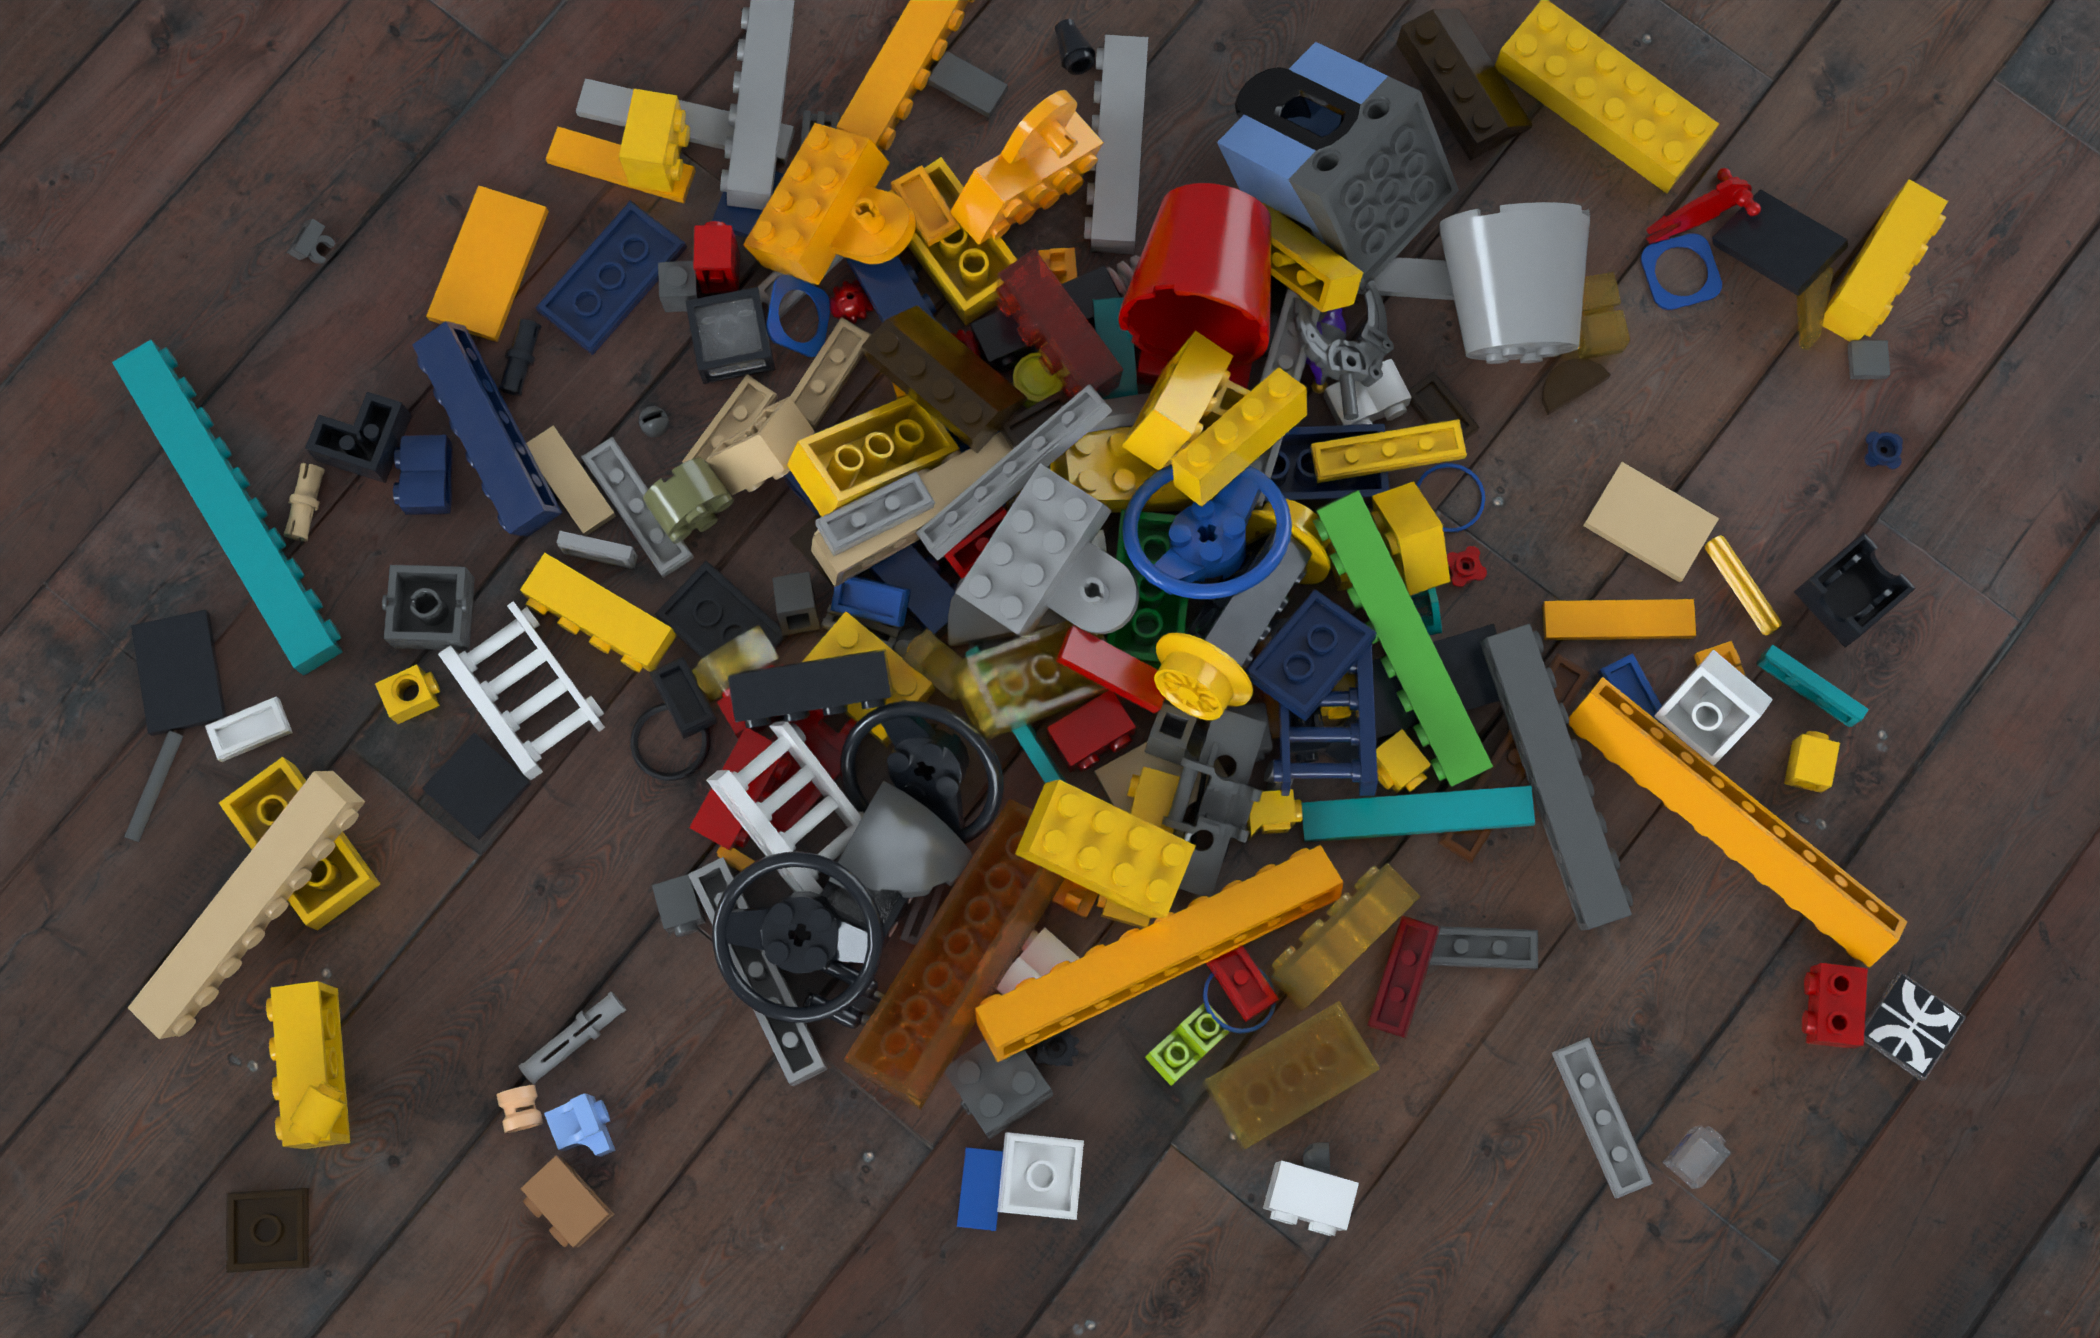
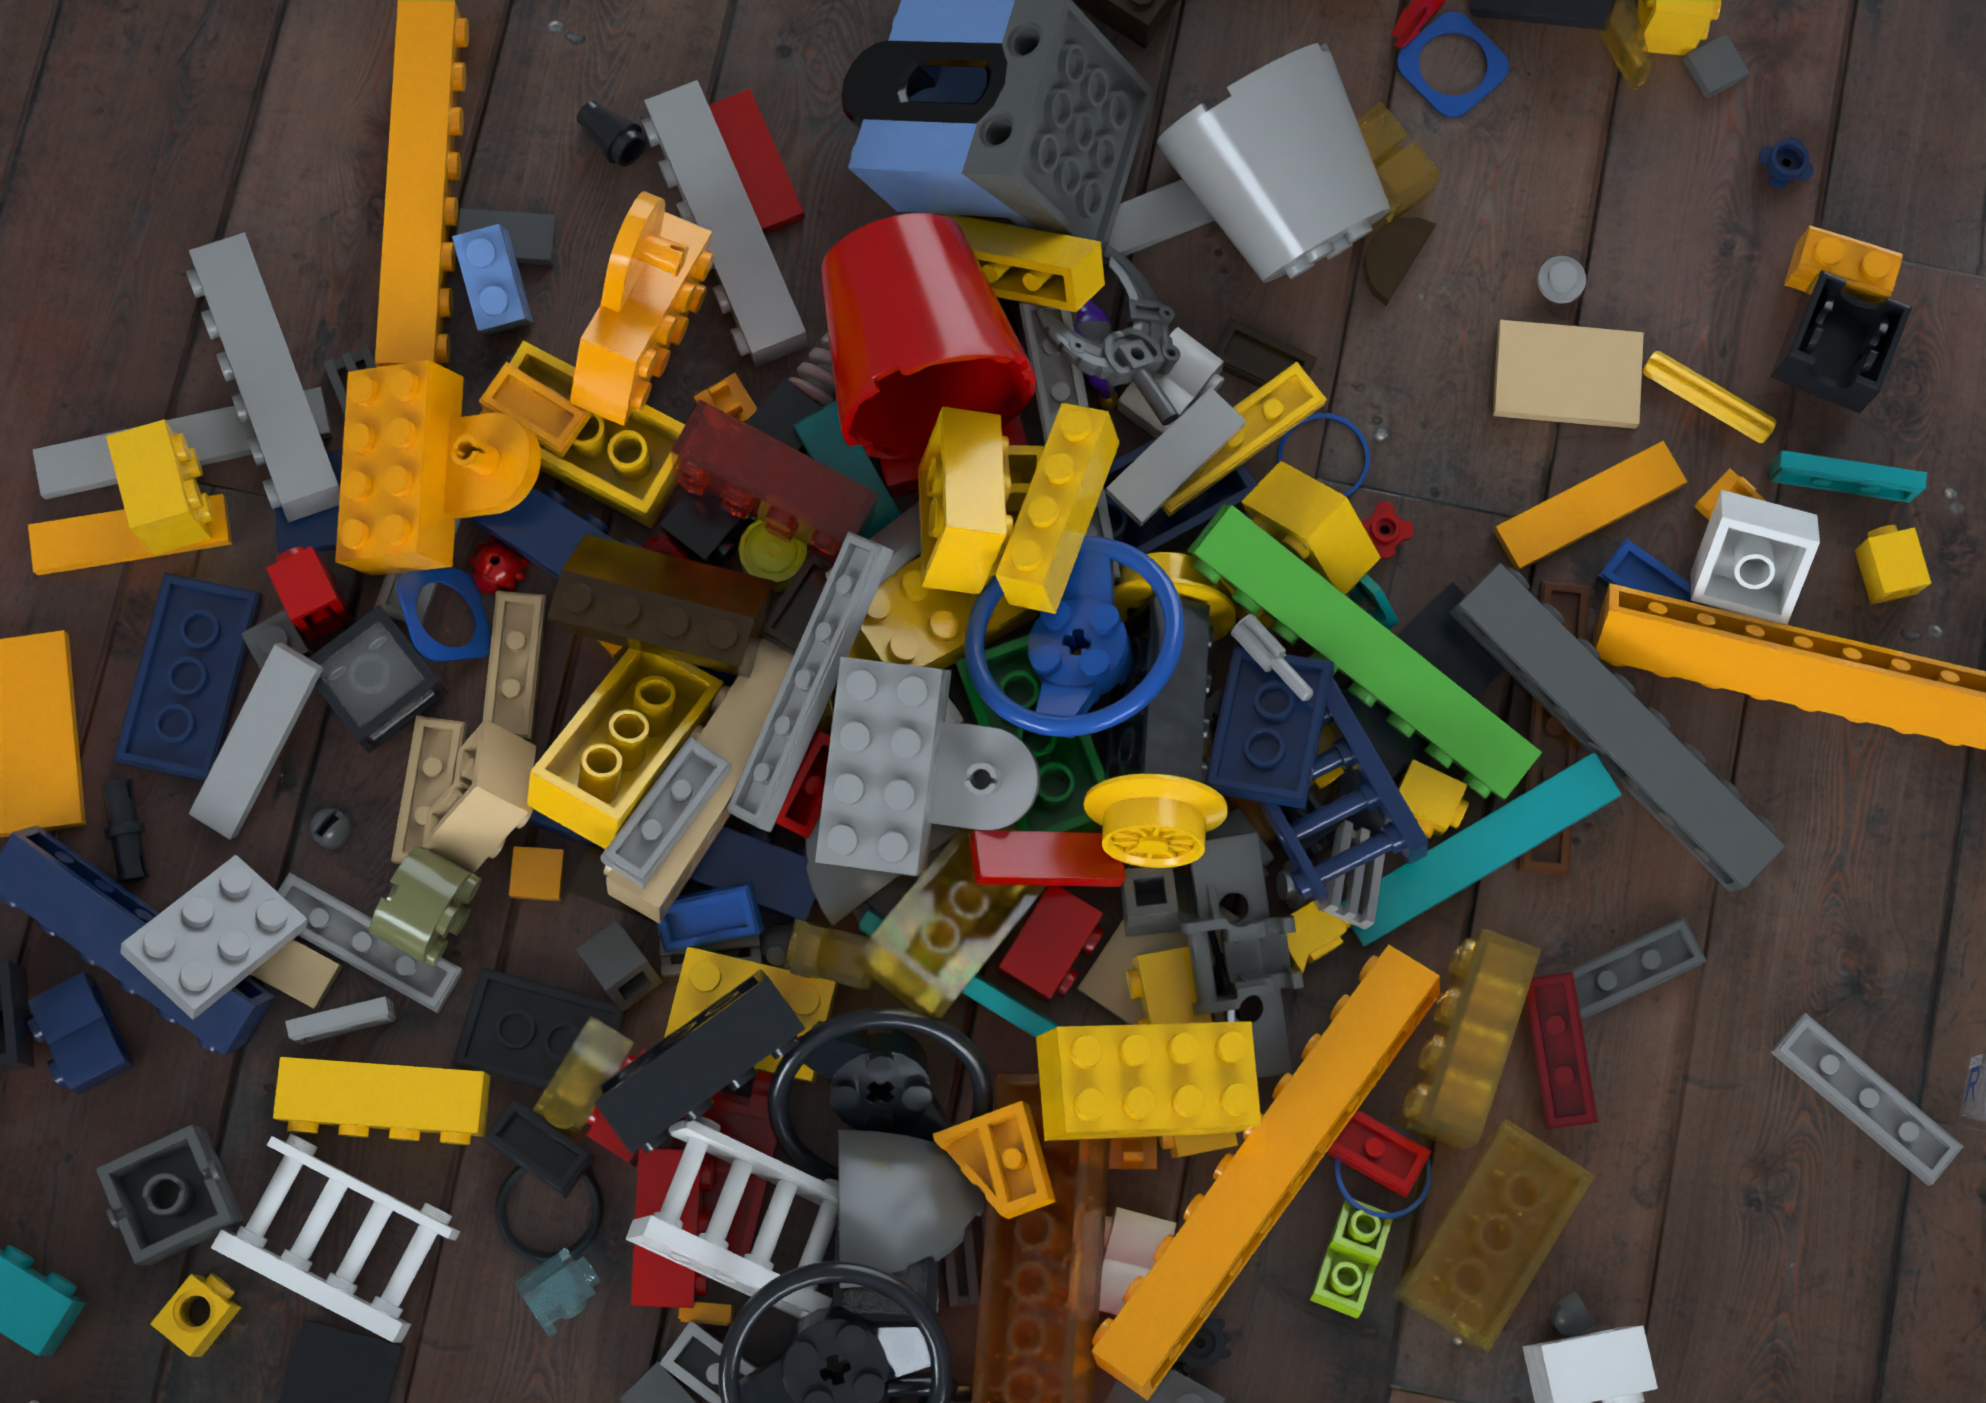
camera: 30 degrees left, 0 degrees up
(541, 452) = (213, 936): none -> light grey plate
(633, 338) = (255, 740): none -> light grey tile
(648, 795) = (558, 1289): none -> clear light blue brick
(773, 517) = (537, 873): none -> light orange tile
(942, 107) = (492, 279): none -> medium blue brick
(982, 853) = (1002, 1158): none -> light orange wing
(1161, 112) = (757, 161): none -> red tile
(1328, 801) = (1362, 881): none -> light grey tile
(1334, 604) = (1269, 653): none -> light grey axle
(1341, 443) = (1175, 456): none -> light grey tile
(1680, 454) = (1561, 279): none -> light grey plate
(1897, 546) = (1866, 267): none -> light orange brick

